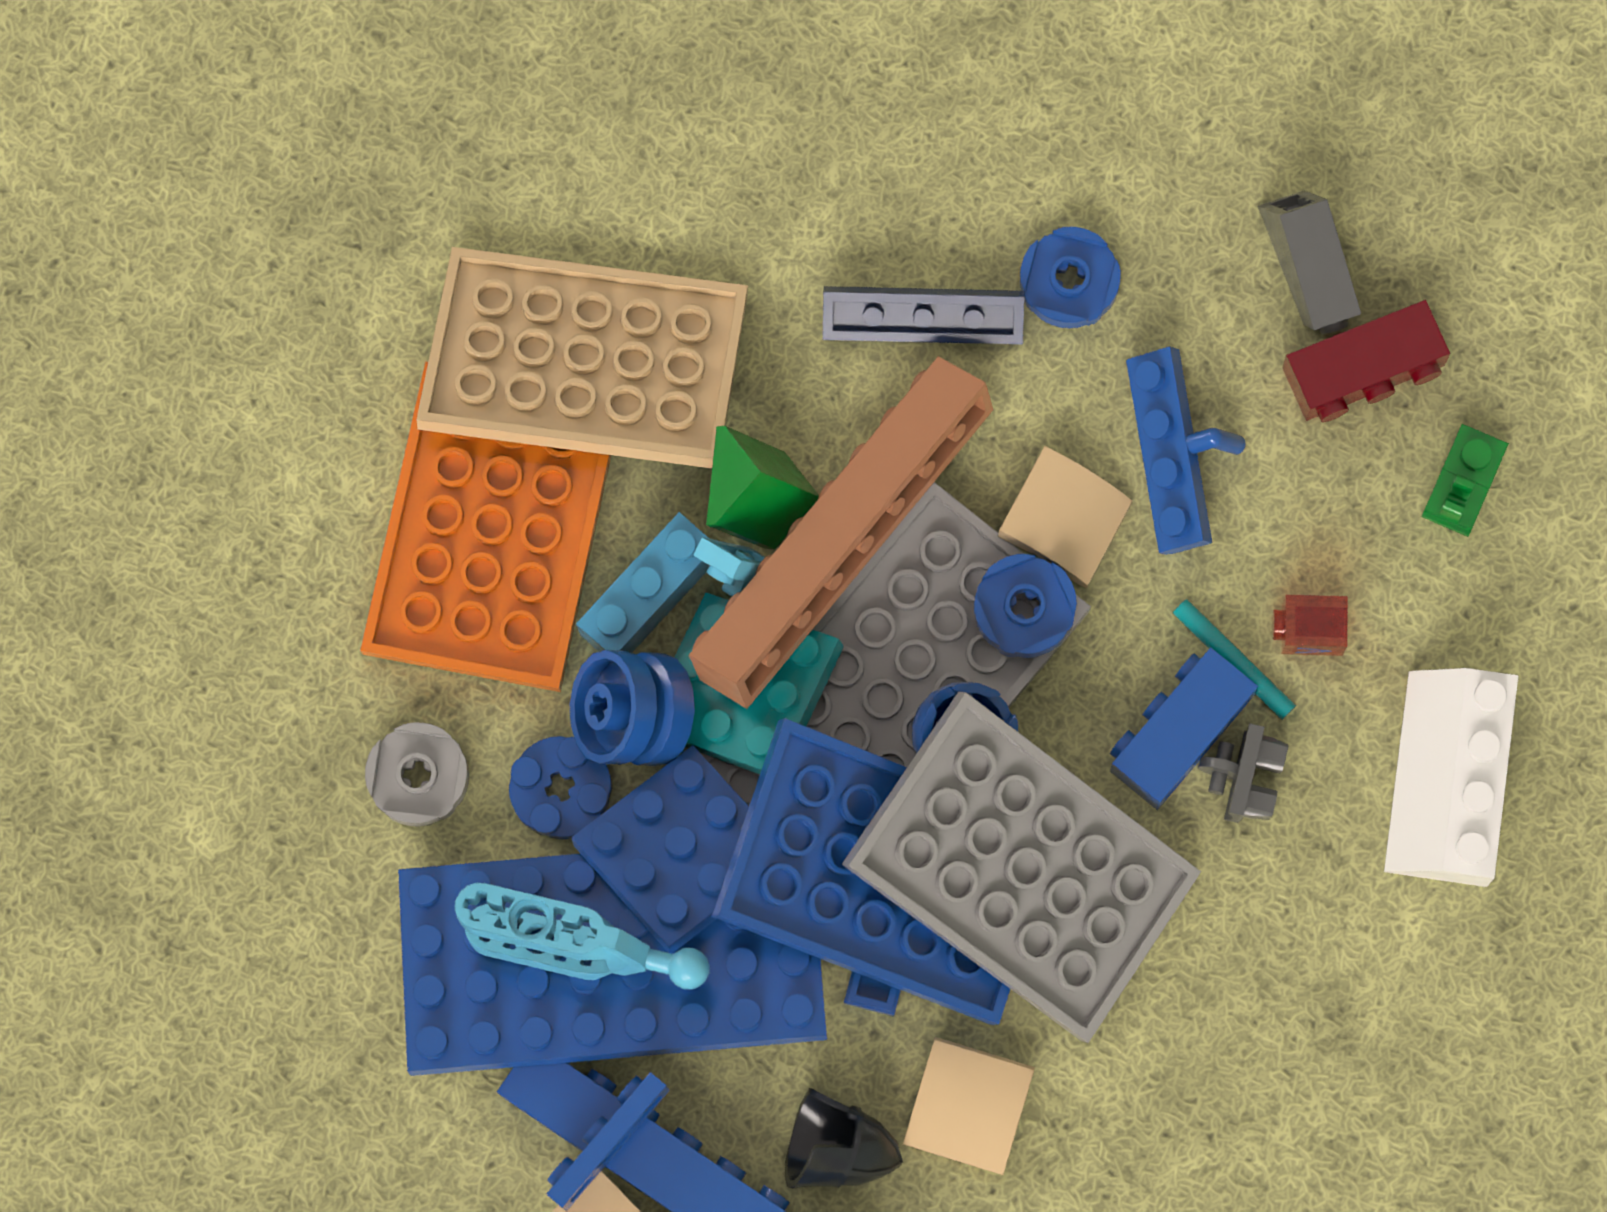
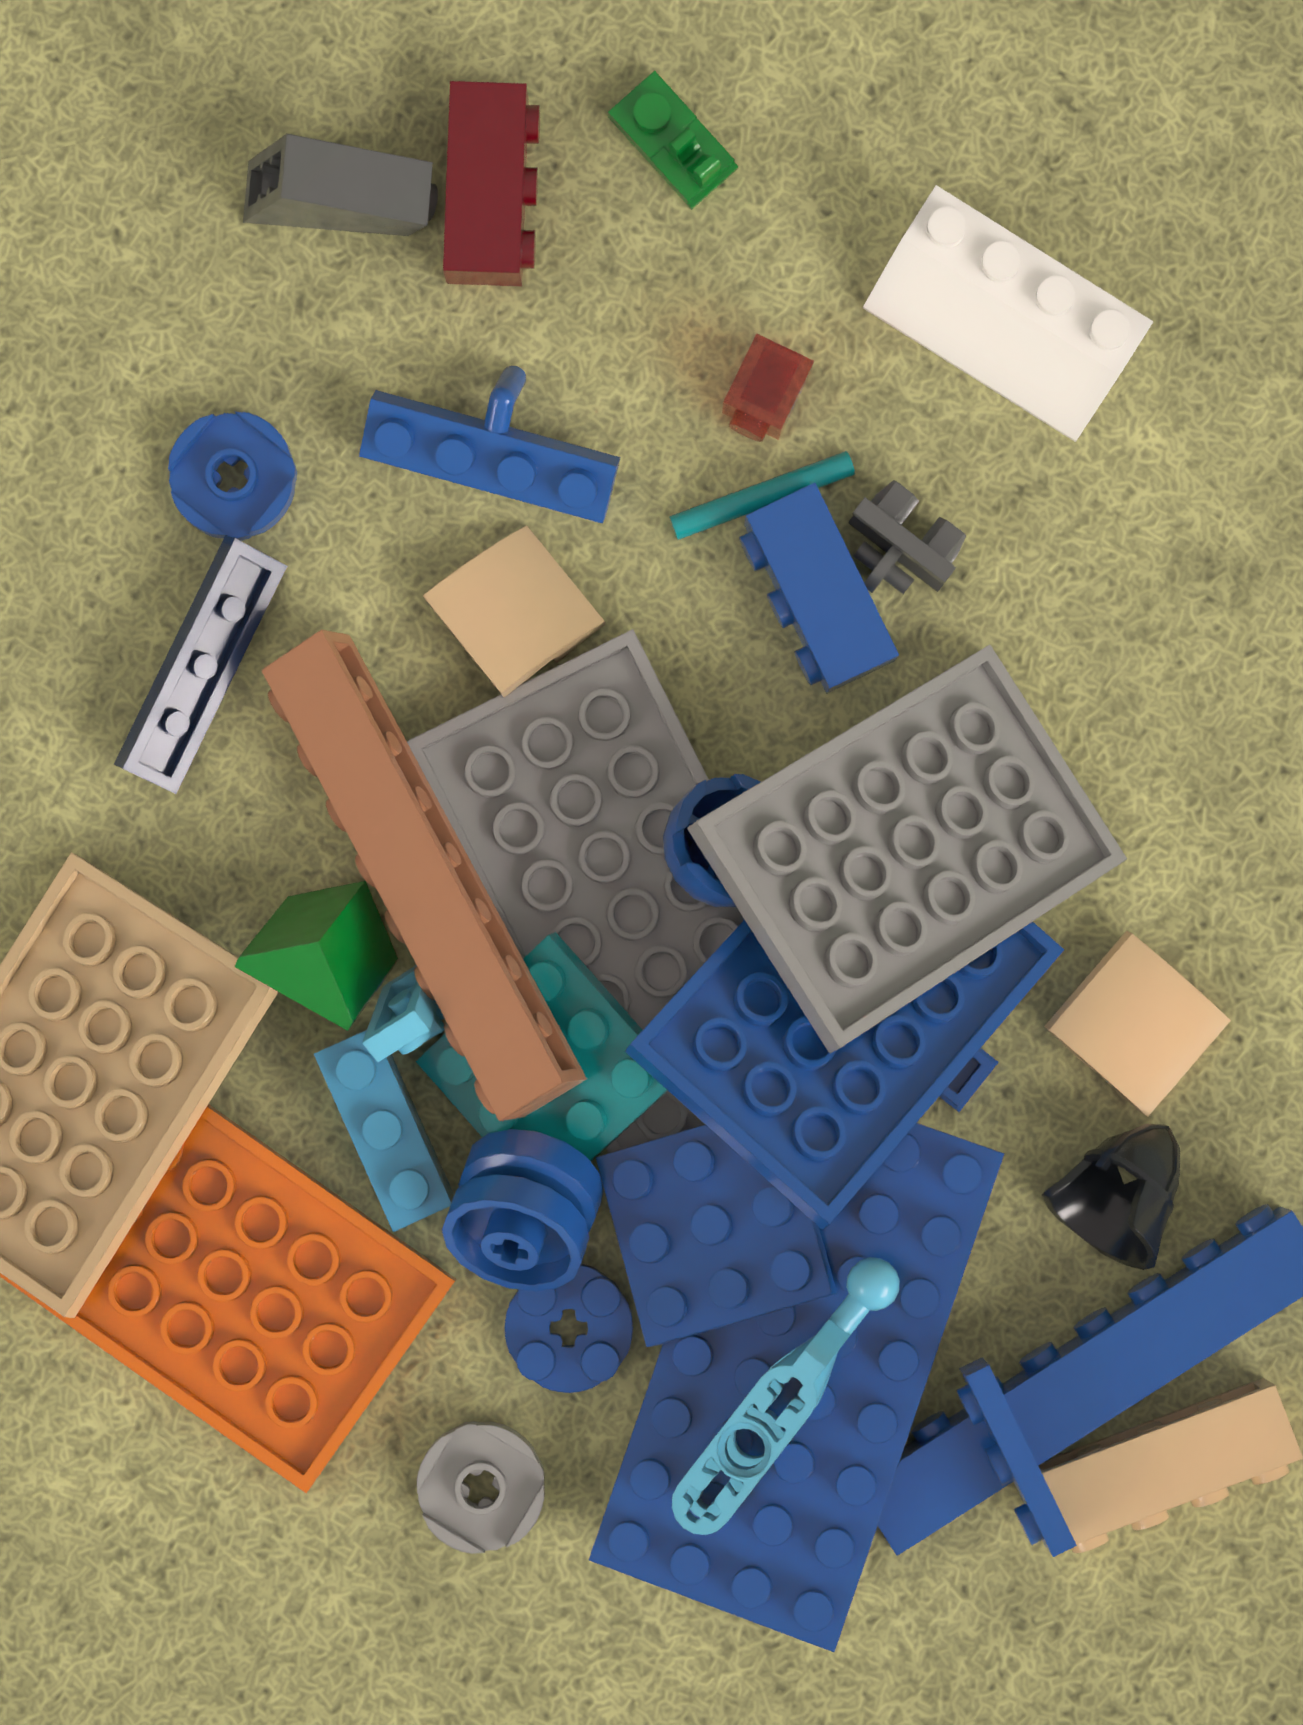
camera: 75 degrees left, 10 degrees up
(1036, 579) = (630, 678): blue plate -> none

